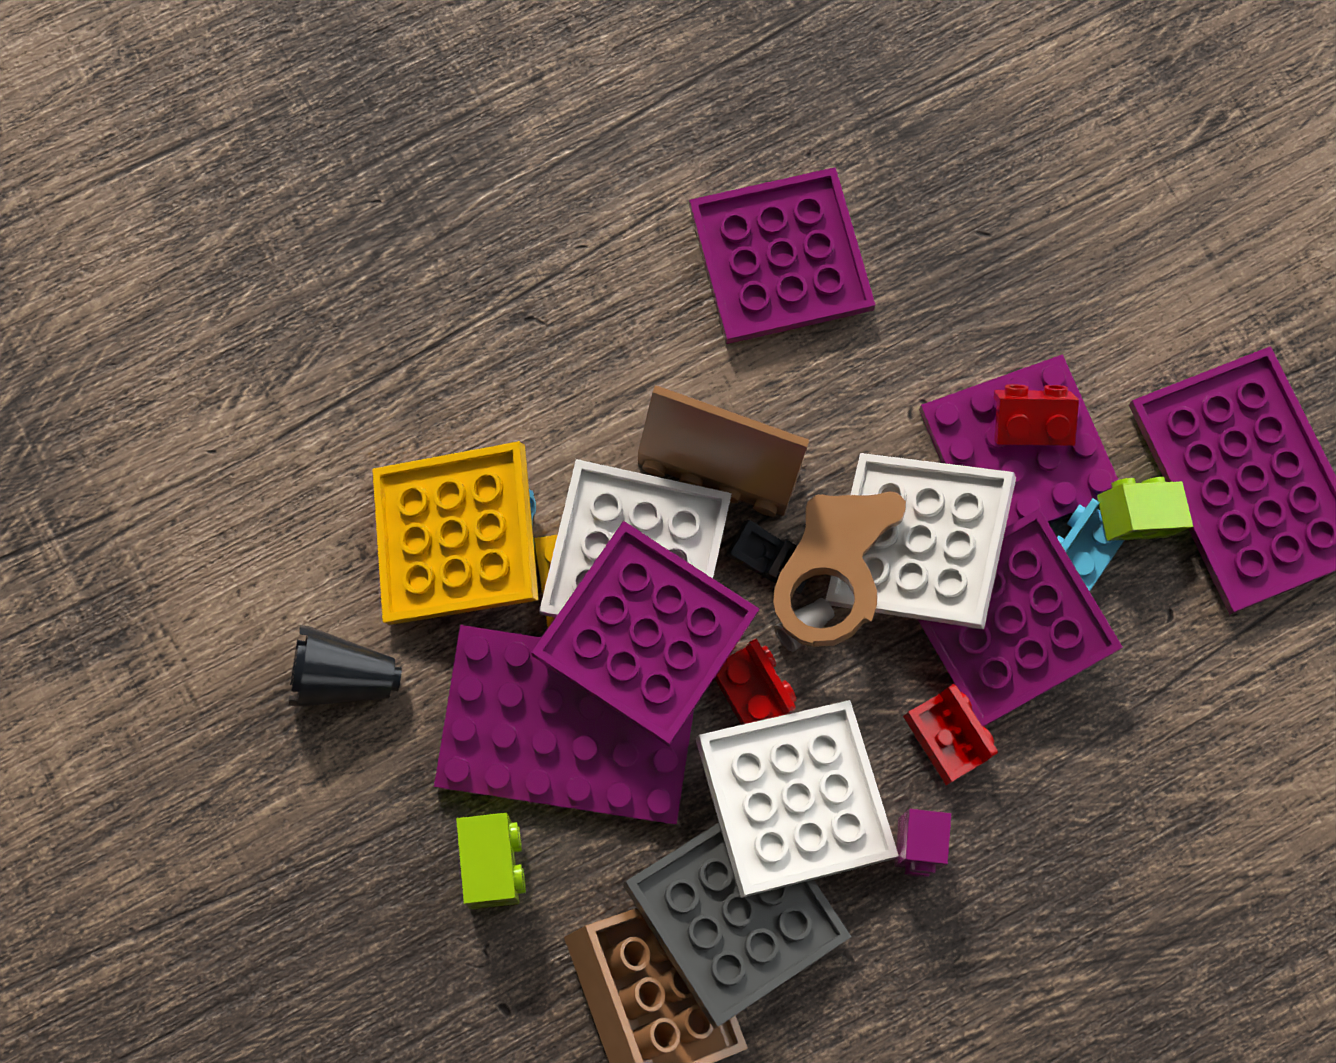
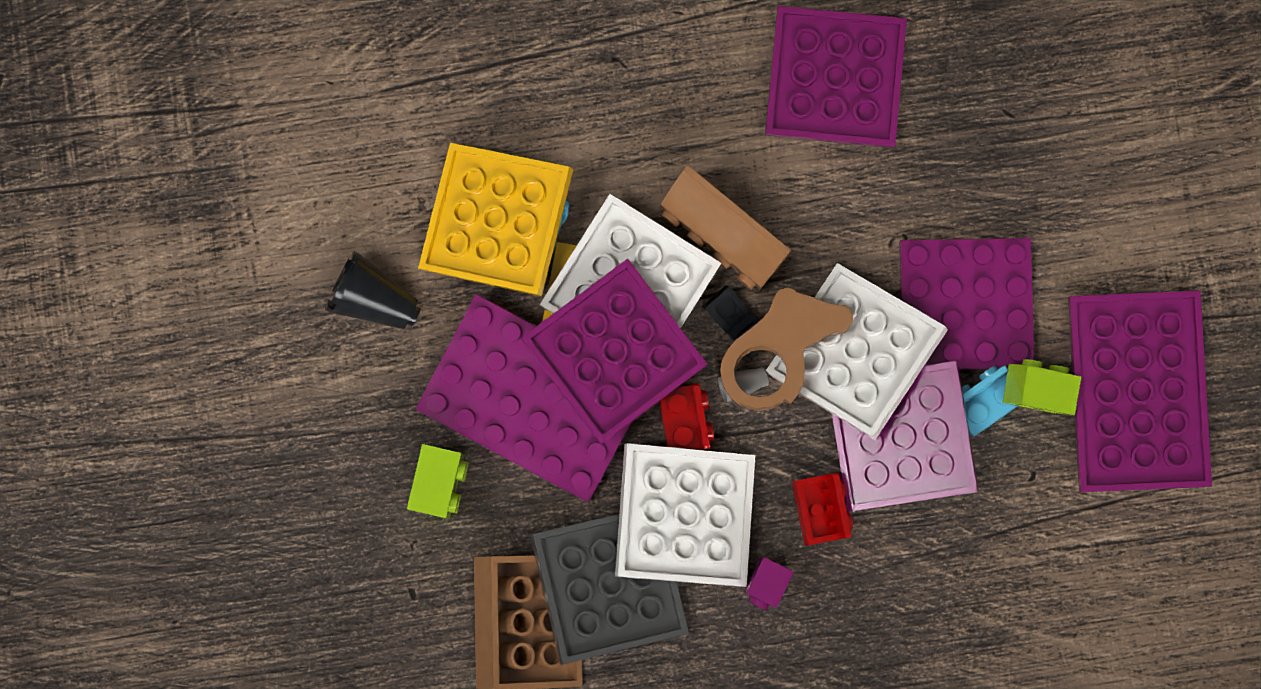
camera: 20 degrees right, 10 degrees up
(1036, 416) = (985, 283): red bracket -> none

